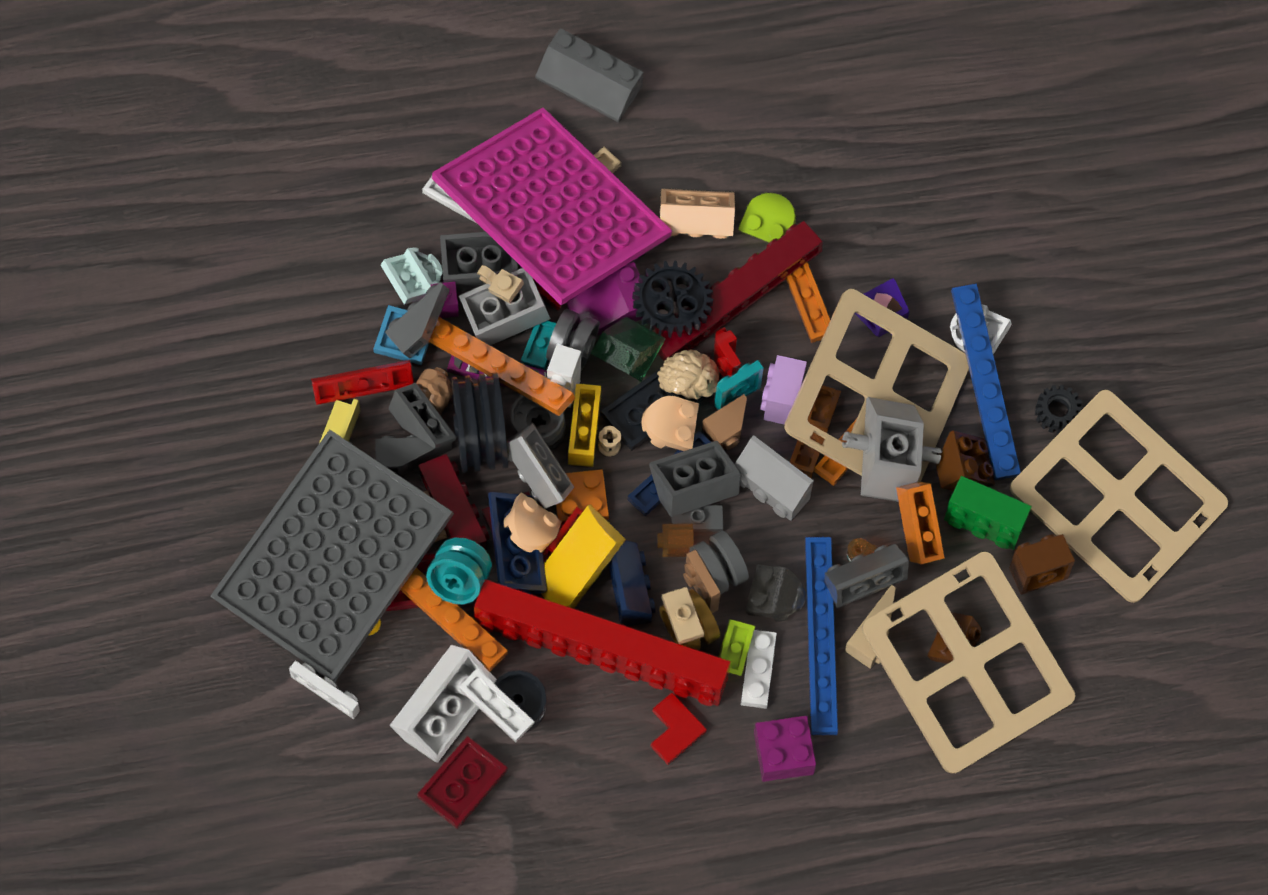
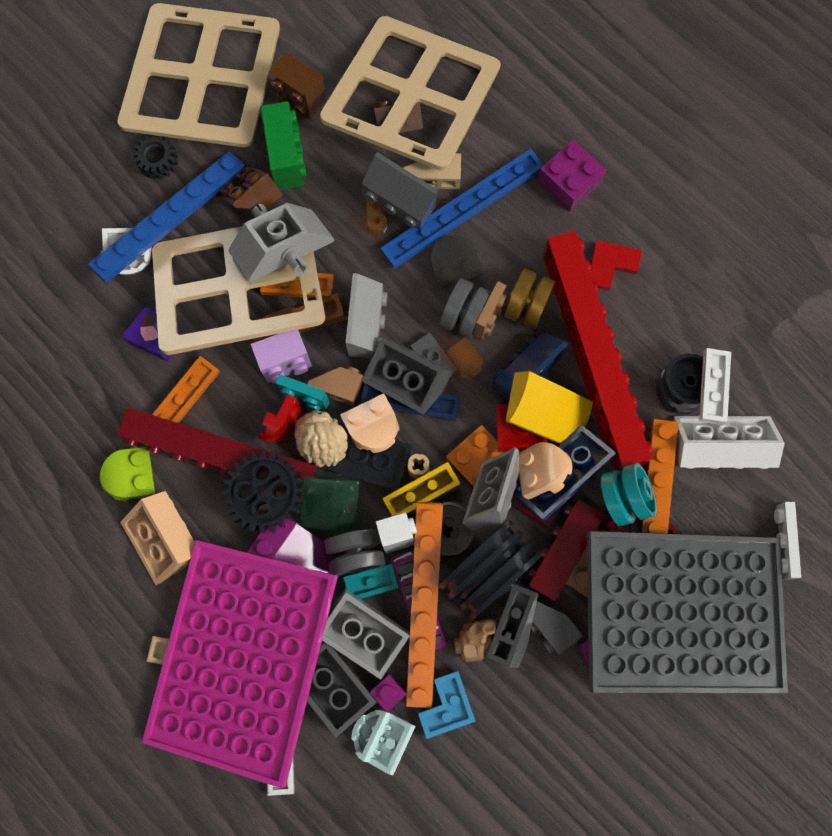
camera: 120 degrees left, 10 degrees up
(343, 419) = (562, 698): light yellow panel -> none
(362, 382) = (511, 708): red plate -> none
(416, 326) = (436, 692): dark grey slope -> none
(462, 782) = (774, 384): dark red plate -> none
(502, 285) = (349, 643): tan plate -> none
(589, 75) = (82, 724): dark grey slope -> none
(682, 615) = (541, 291): tan plate -> none
(736, 645) = (520, 257): lime plate -> none
(758, 669) = (520, 237): white plate -> none
(920, 522) = (326, 184): orange brick -> none

